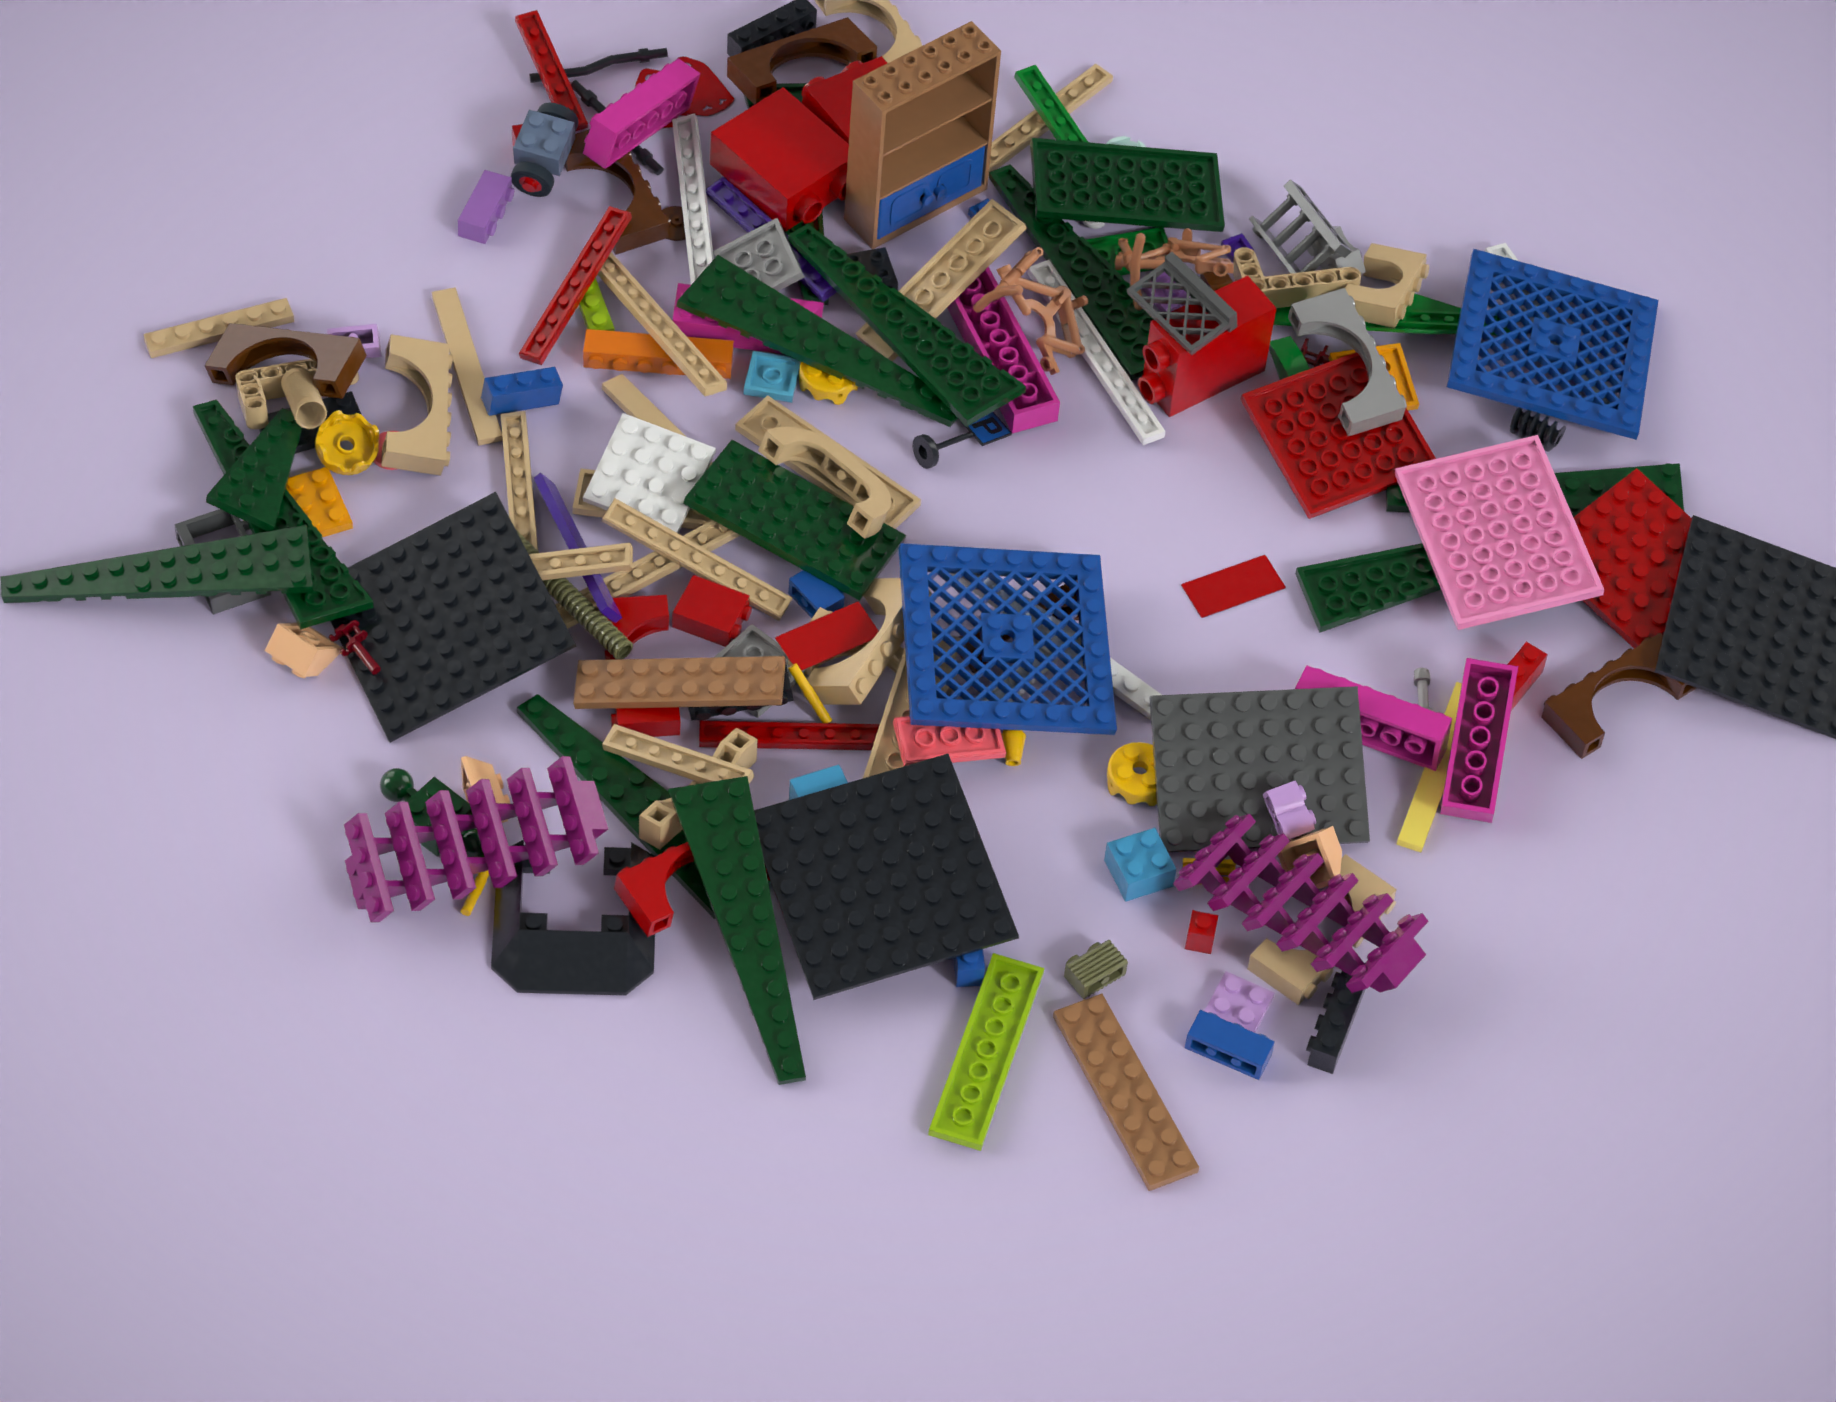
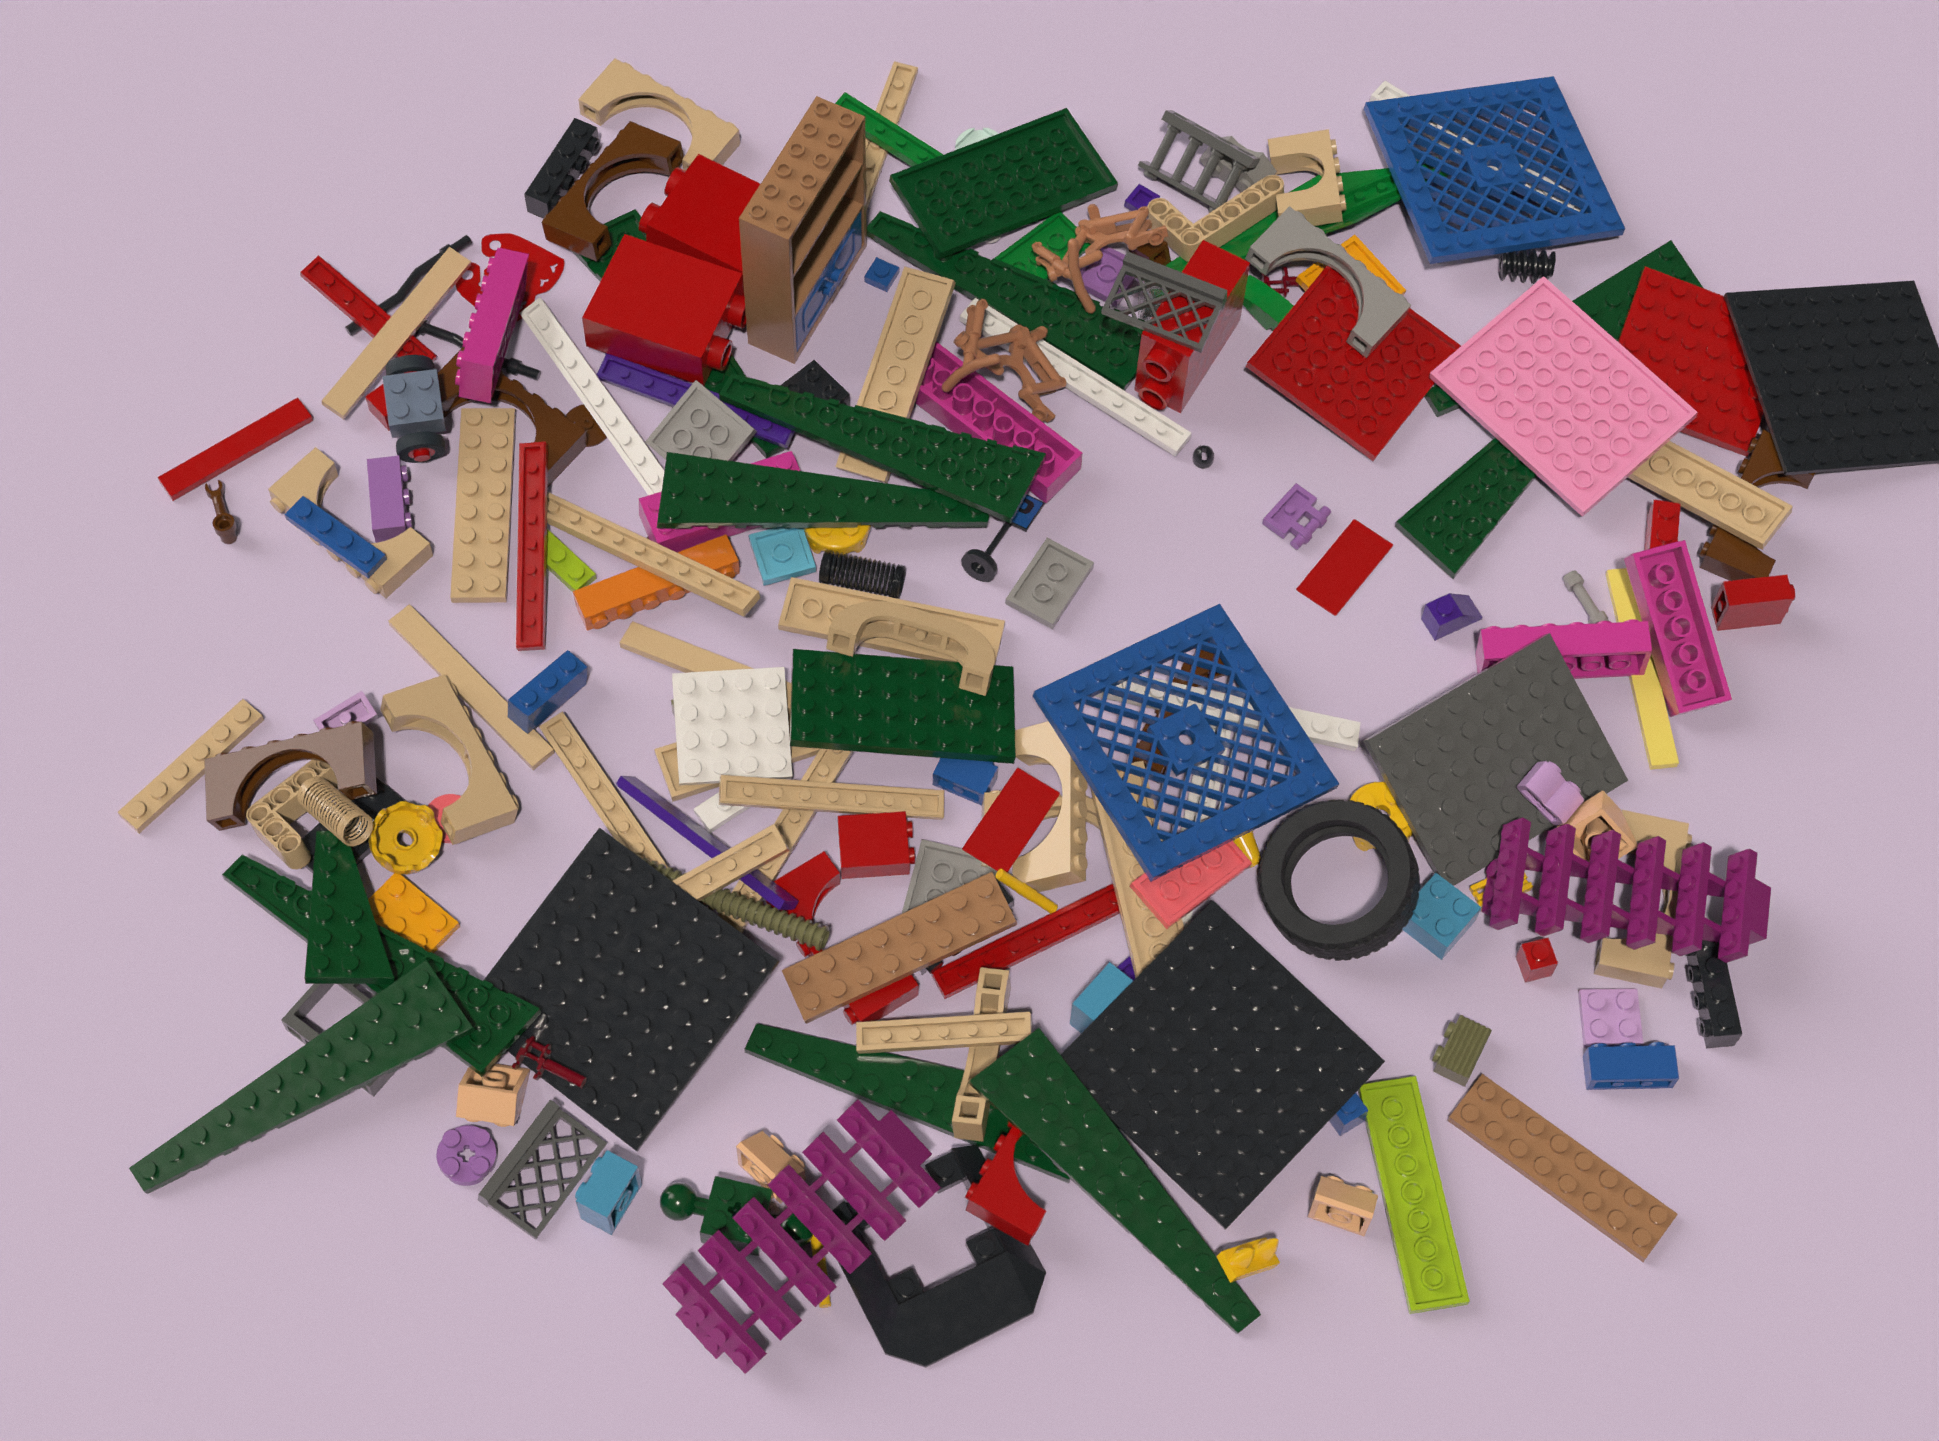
camera: 25 degrees left, 10 degrees up
(253, 671) = (454, 1143): none -> medium lavender plate
(301, 697) = (520, 1155): none -> dark grey fence
(346, 752) = (608, 1192): none -> dark azure brick
(347, 169) = (223, 522): none -> reddish brown brick
(390, 124) = (235, 449): none -> red tile
(425, 212) = (335, 537): none -> blue plate
(450, 250) = (312, 479): none -> tan arch
(556, 244) = (483, 505): none -> tan plate
(566, 90) = (396, 333): none -> tan tile
(603, 534) = (715, 815): none -> white plate
(806, 402) = (829, 564): none -> black piece
(820, 1031) = (1249, 1258): none -> yellow tile
(921, 1029) = (1343, 1205): none -> light nougat slope
(976, 490) = (1049, 583): none -> light grey plate
(1079, 836) = (1321, 823): none -> black tyre
(1171, 455) = (1197, 457): none -> black hinge
(1214, 523) = (1289, 512): none -> medium lavender plate
(1296, 651) = (1449, 614): none -> dark purple slope
(1563, 754) = (1752, 602): none -> red brick
(1580, 658) = (1713, 494): none -> tan plate

